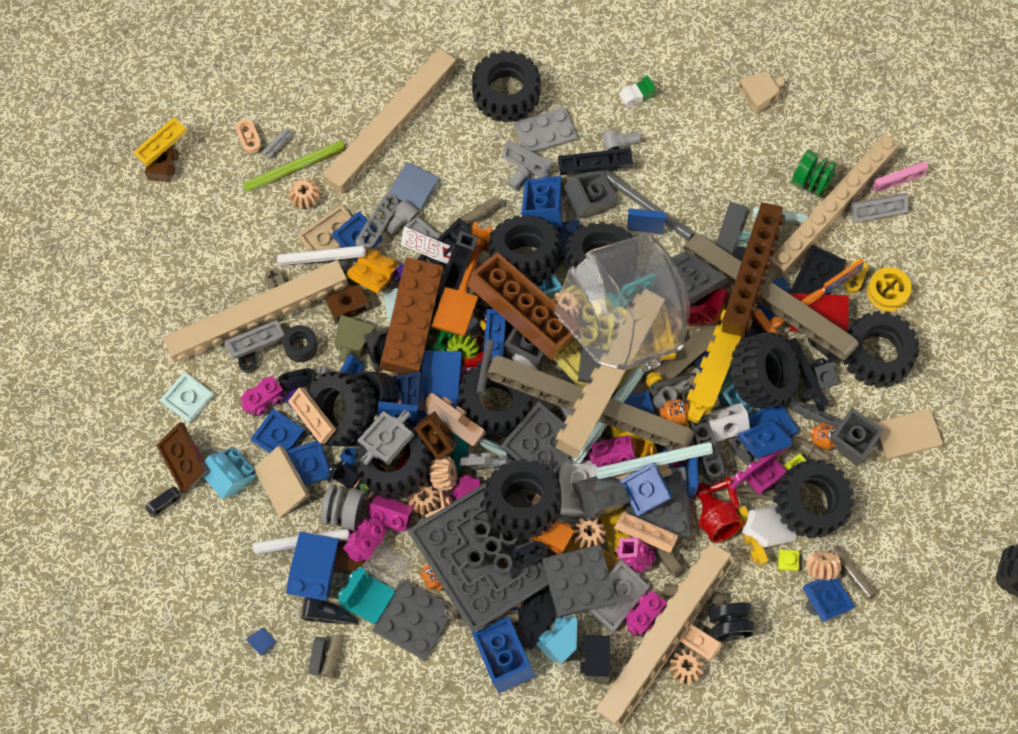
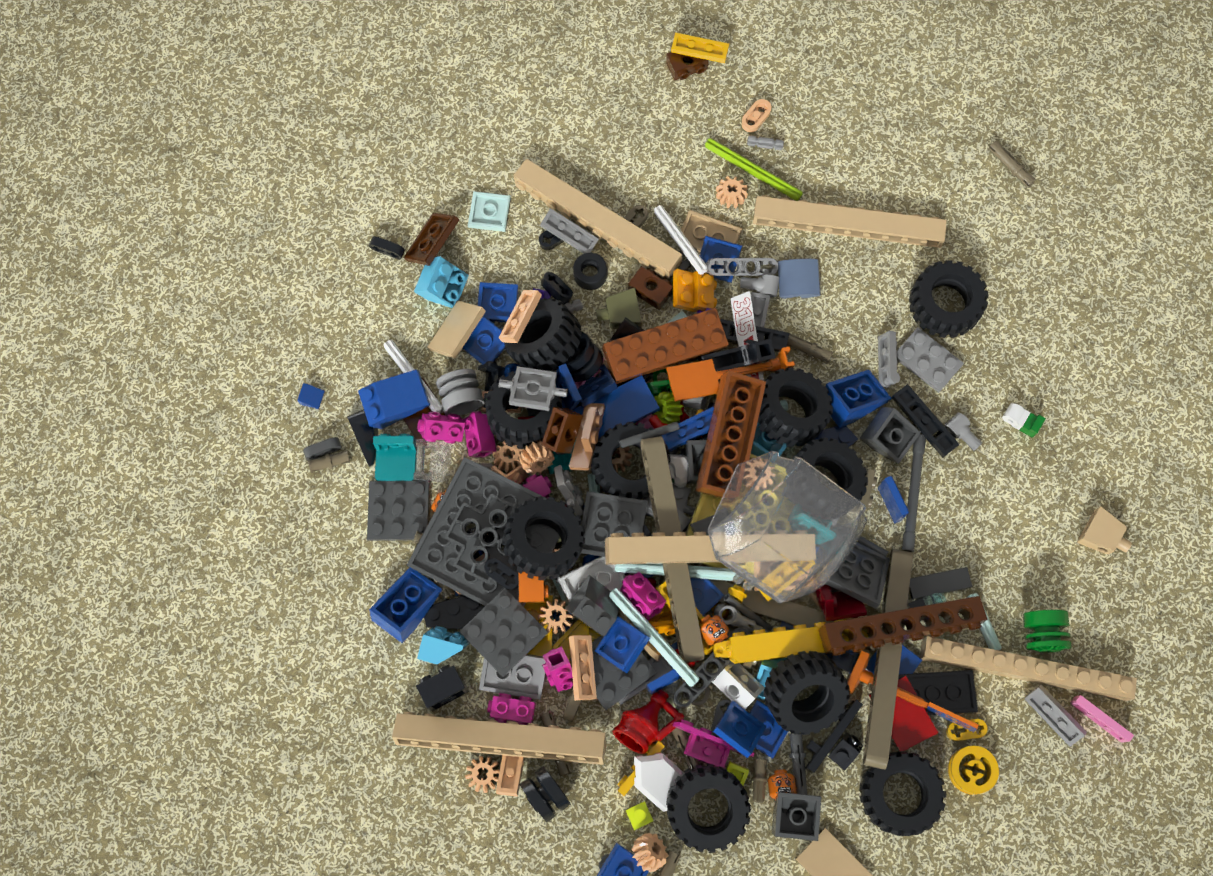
camera: 60 degrees right, 5 degrees up
(262, 396) = (520, 268): dark pink brick -> none
(352, 365) = (594, 326): blue tile -> none
(521, 174) = (865, 362): light grey pin -> none

